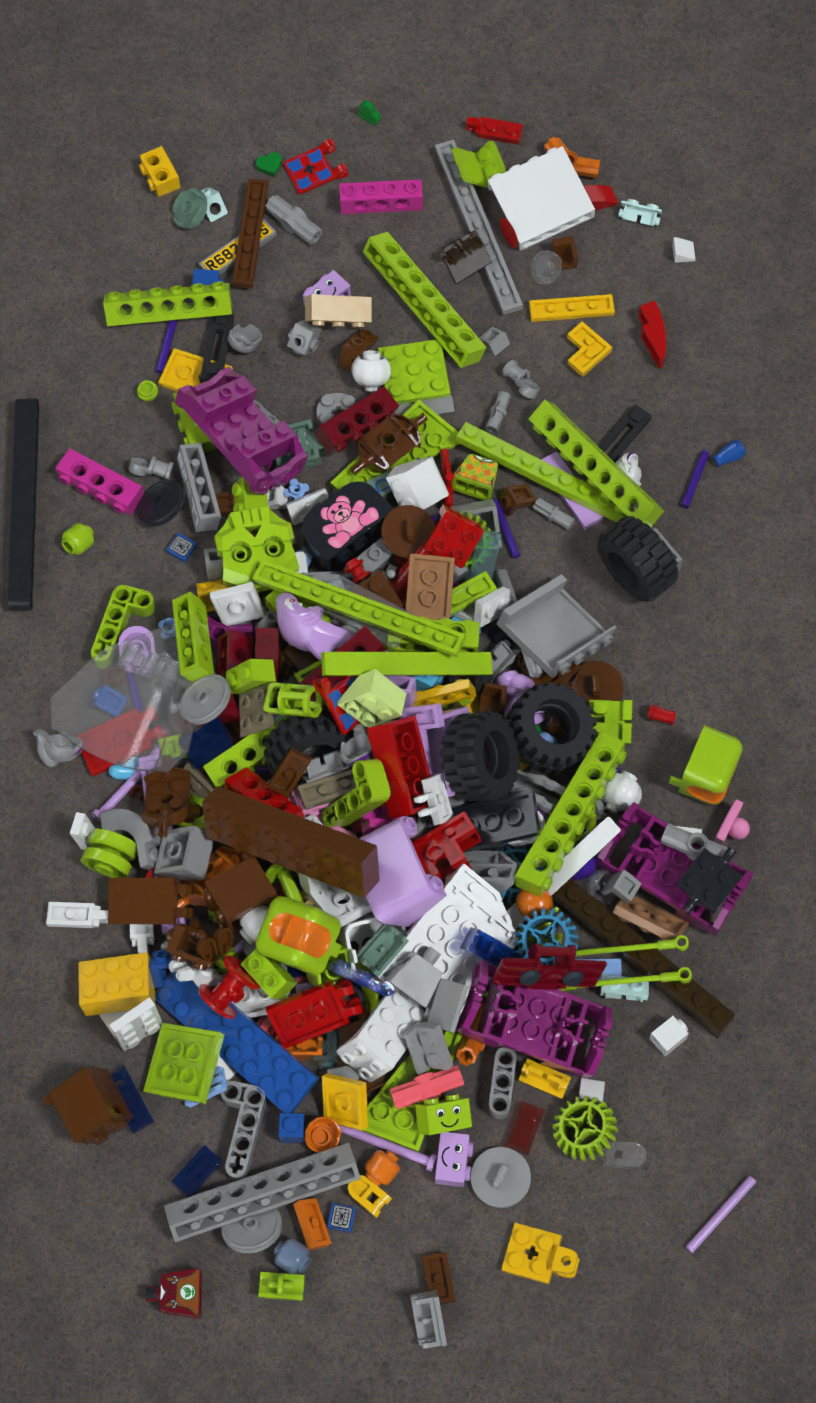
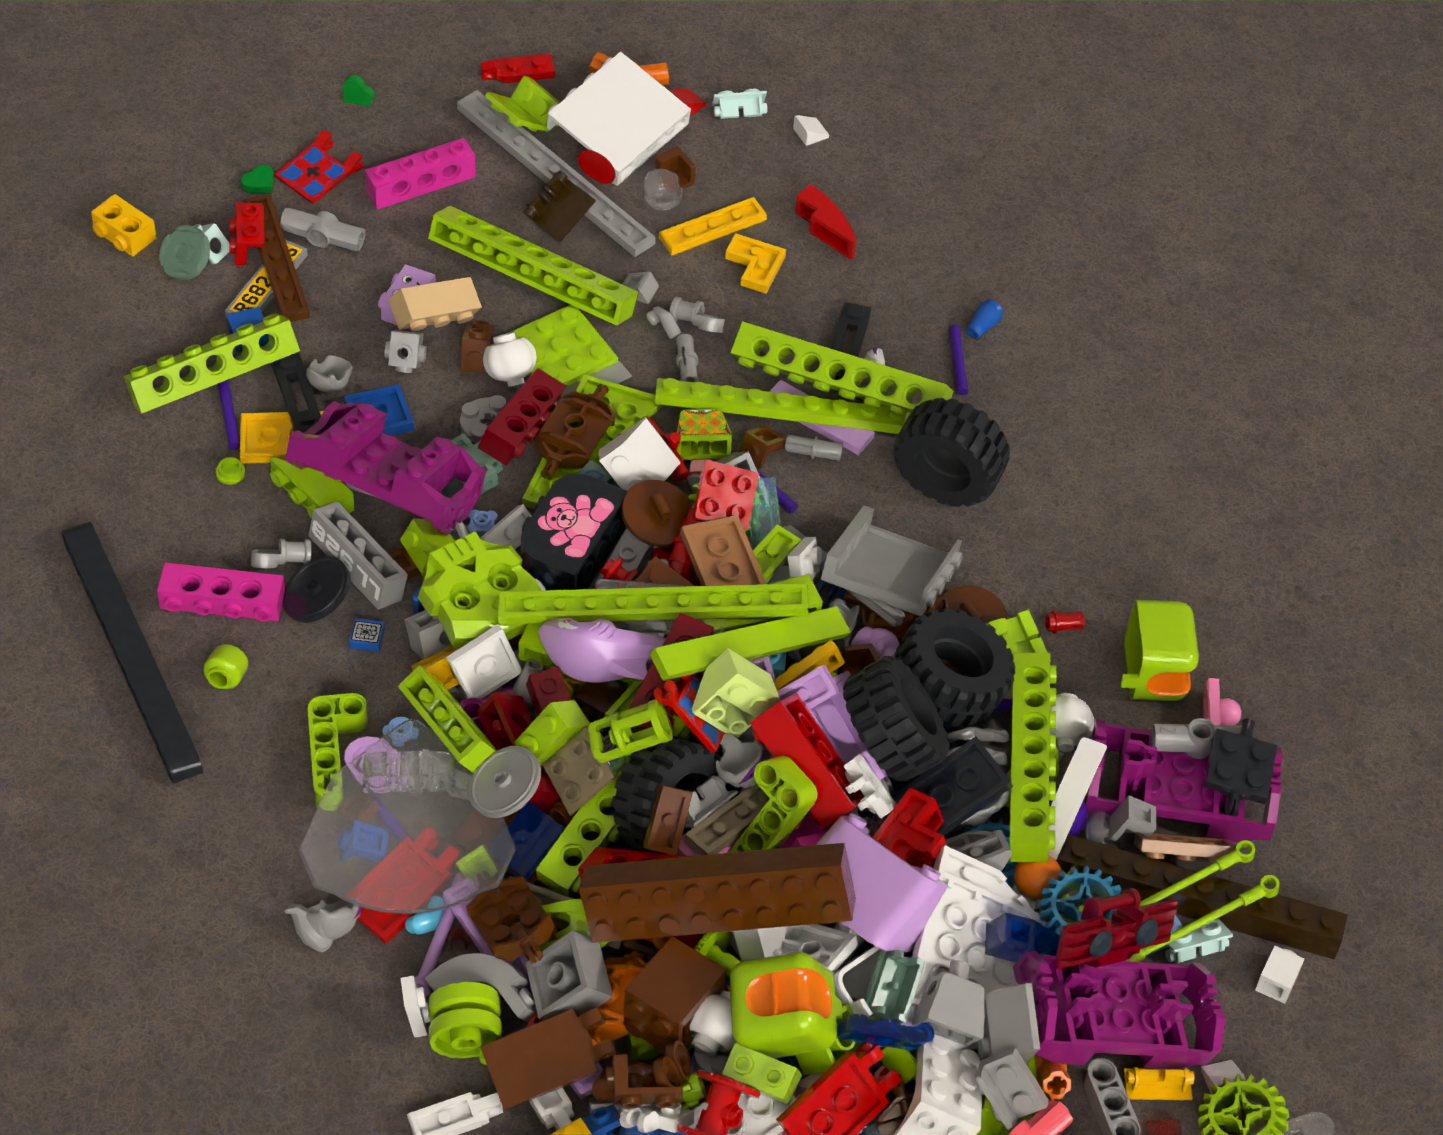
camera: 30 degrees left, 15 degrees down
(239, 205) = (247, 230): none -> red bracket
(268, 379) = (390, 401): none -> blue plate
(497, 372) = (666, 319): none -> light grey arm

